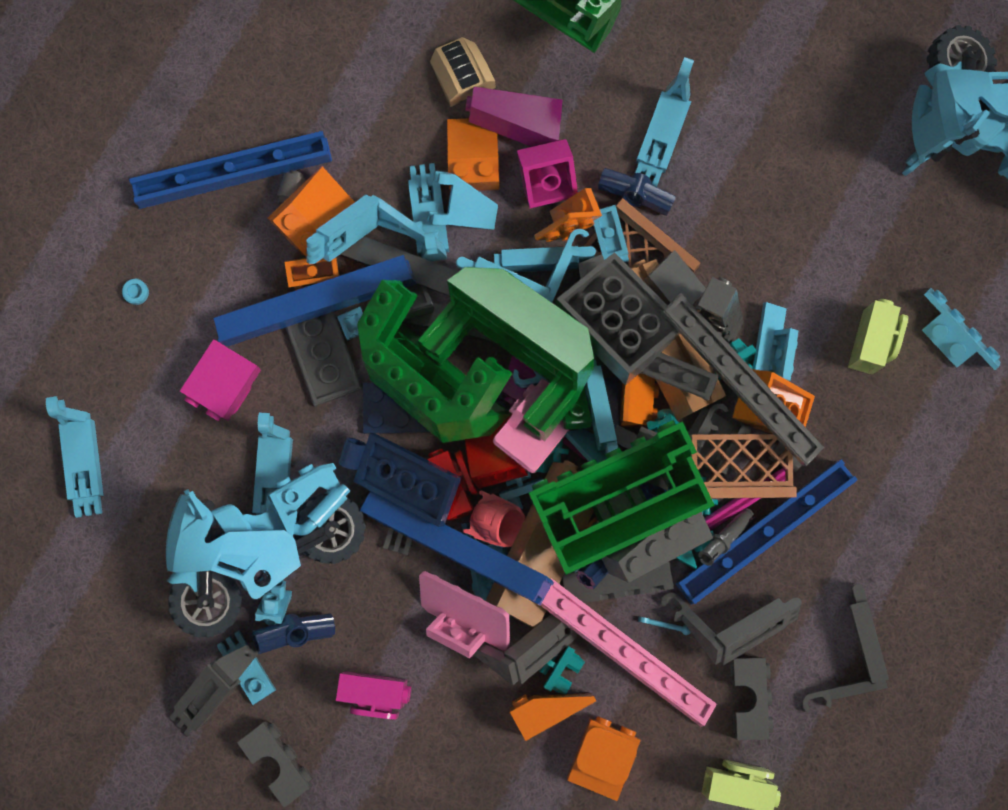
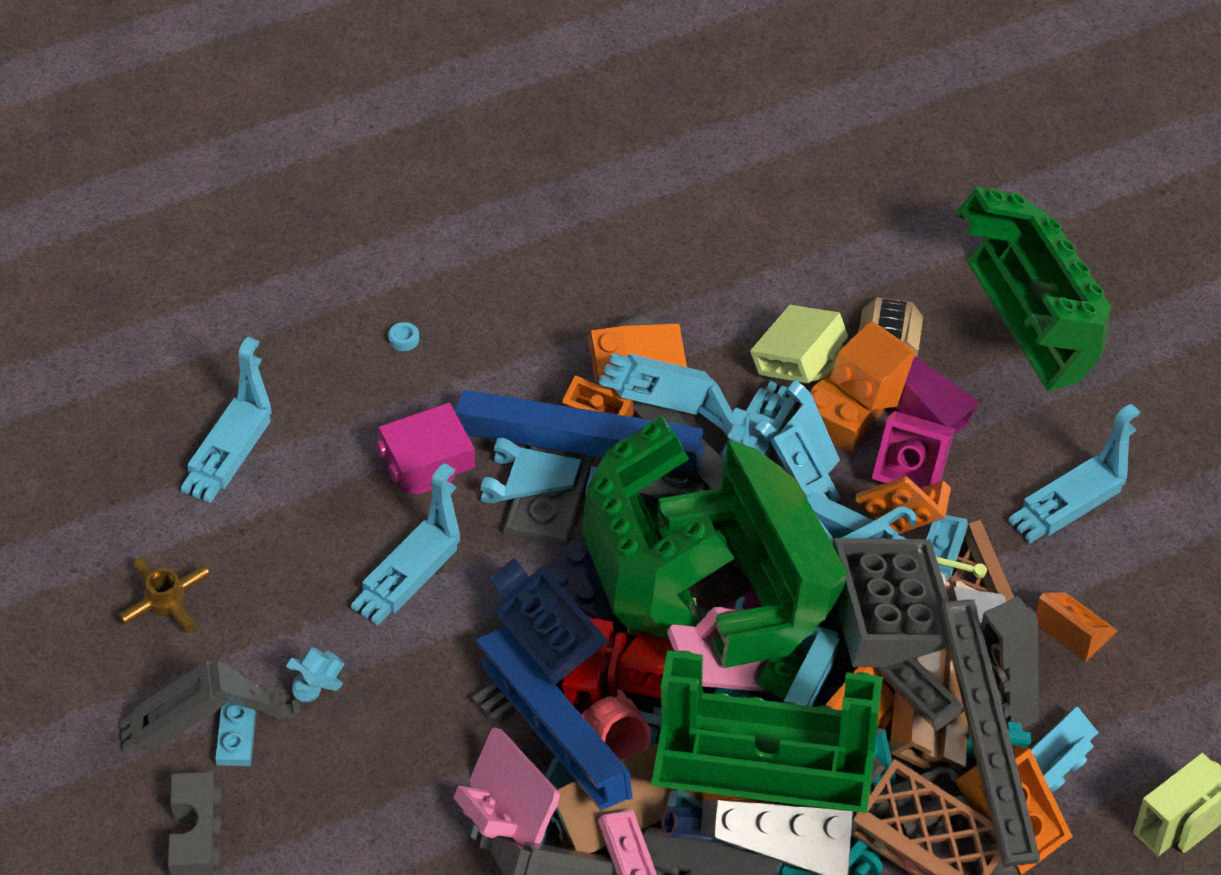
camera: 30 degrees right, 30 degrees down
(137, 613) = (164, 594): none -> pearl gold bar
(230, 169) = (583, 284): blue tile -> none
(253, 545) = (312, 567): medium azure piece -> none
(281, 635) = (335, 719): dark blue piece -> none
(304, 350) = (531, 473): none -> medium azure flag
(373, 694) = (352, 815): dark pink brick -> none
(416, 130) = (800, 344): none -> yellowish green brick
(480, 228) = (803, 463): none -> medium azure hinge
(481, 123) = (873, 367): none -> orange slope
(636, 190) = (1003, 528): dark blue piece -> none
(647, 241) = (978, 570): none -> yellowish green hinge
(725, 235) = (1072, 624): none -> orange slope

